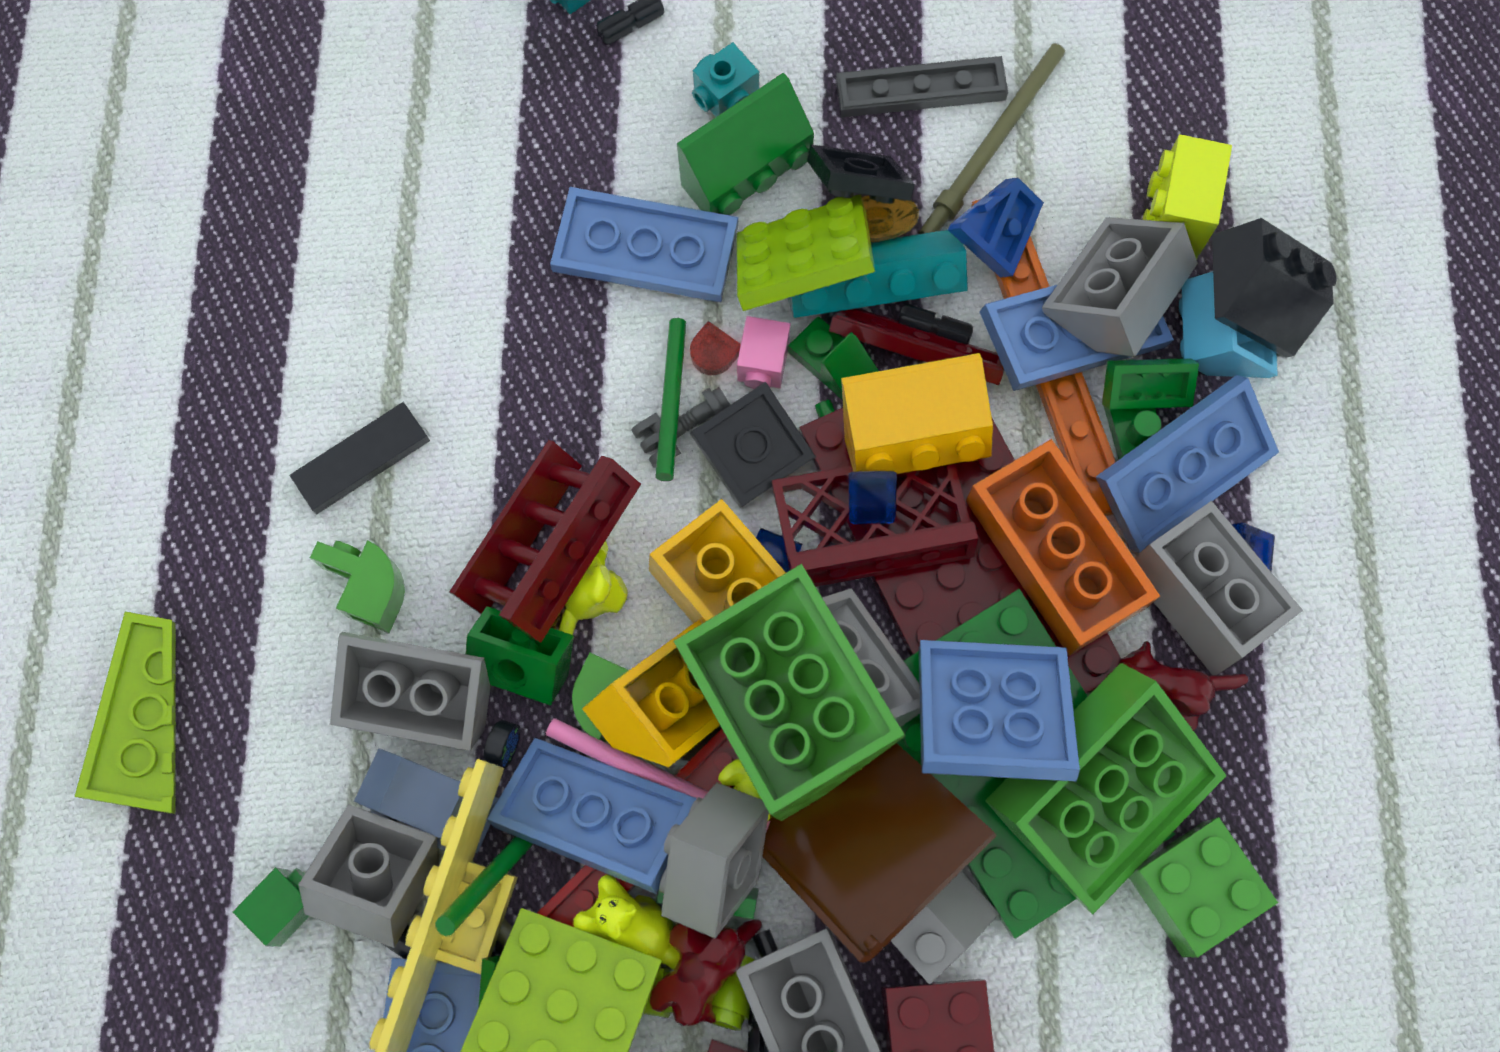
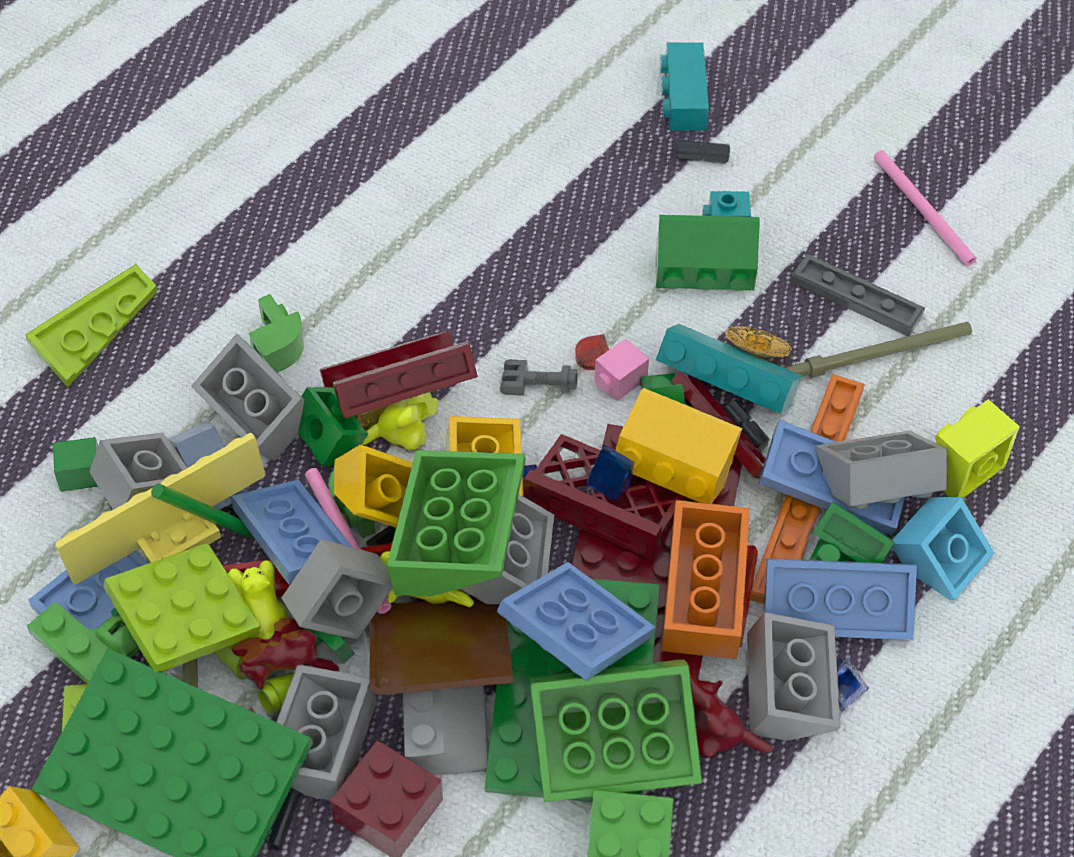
camera: 35 degrees right, 20 degrees down
(359, 458) = (334, 276): black tile -> none
(502, 743) = (278, 468): black tile -> none
(644, 244) = (602, 271): medium blue plate -> none
(671, 400) = (541, 358): green bar -> none
(752, 444) = (568, 408): black plate -> none
(803, 252) = (689, 322): lime plate -> none
(860, 172) = (755, 298): black plate -> none
(999, 225) = (831, 388): blue wing -> none
(1270, 285) = (980, 528): black slope -> none

